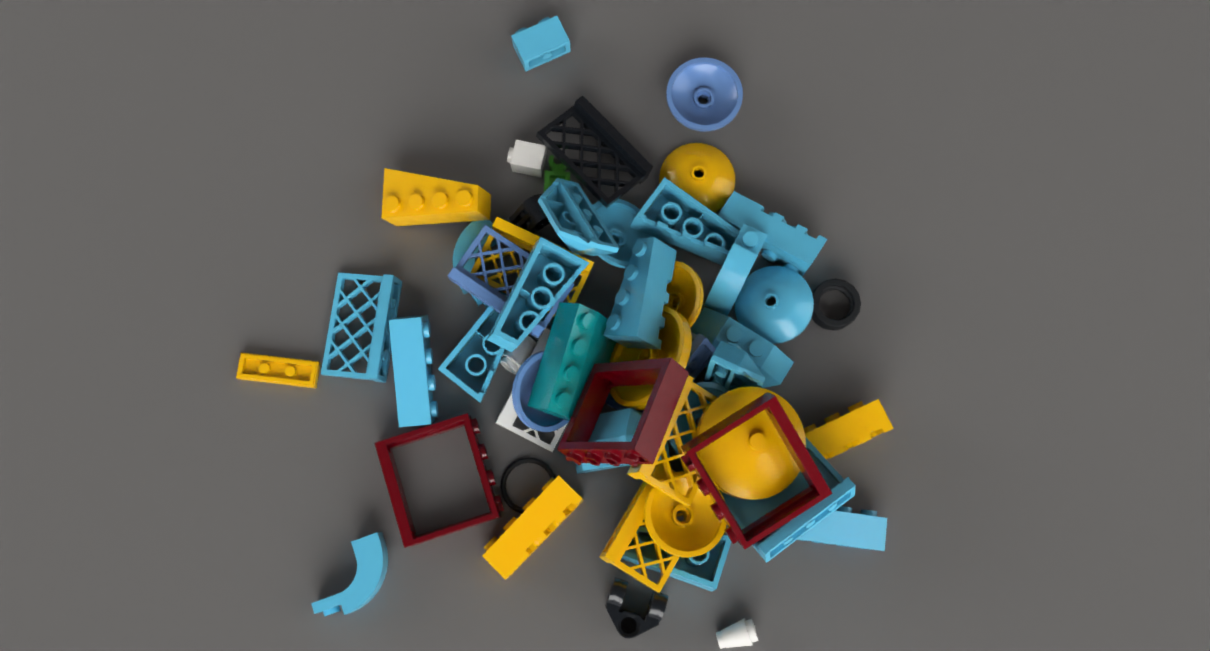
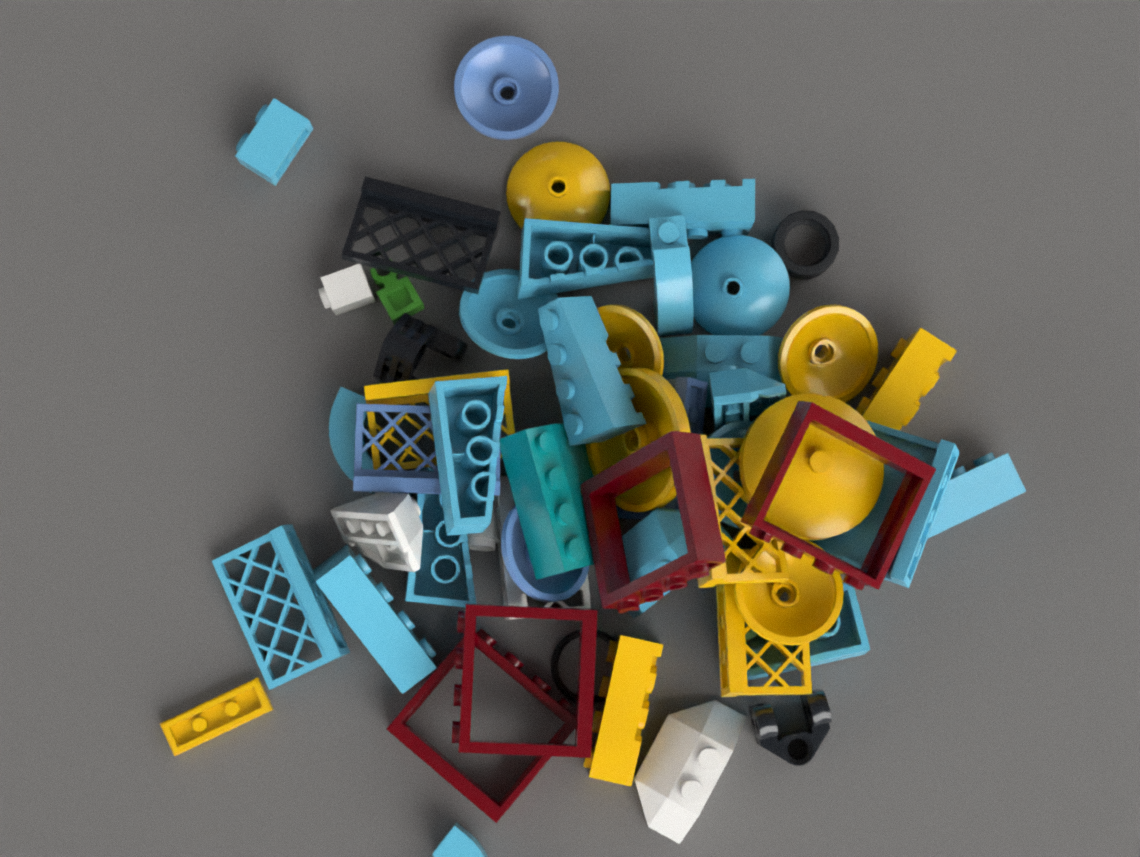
camera: 35 degrees left, 5 degrees up
(431, 200) = (263, 413): yellow wedge -> none
(435, 449) = (585, 684): none -> dark red window
(454, 316) = (383, 529): none -> white wedge
(549, 589) = (686, 765): none -> white wedge
(576, 219) = (457, 332): medium azure wedge -> none
(738, 634) = (922, 683): white cone -> none
(815, 393) = (844, 361): none -> yellow dish

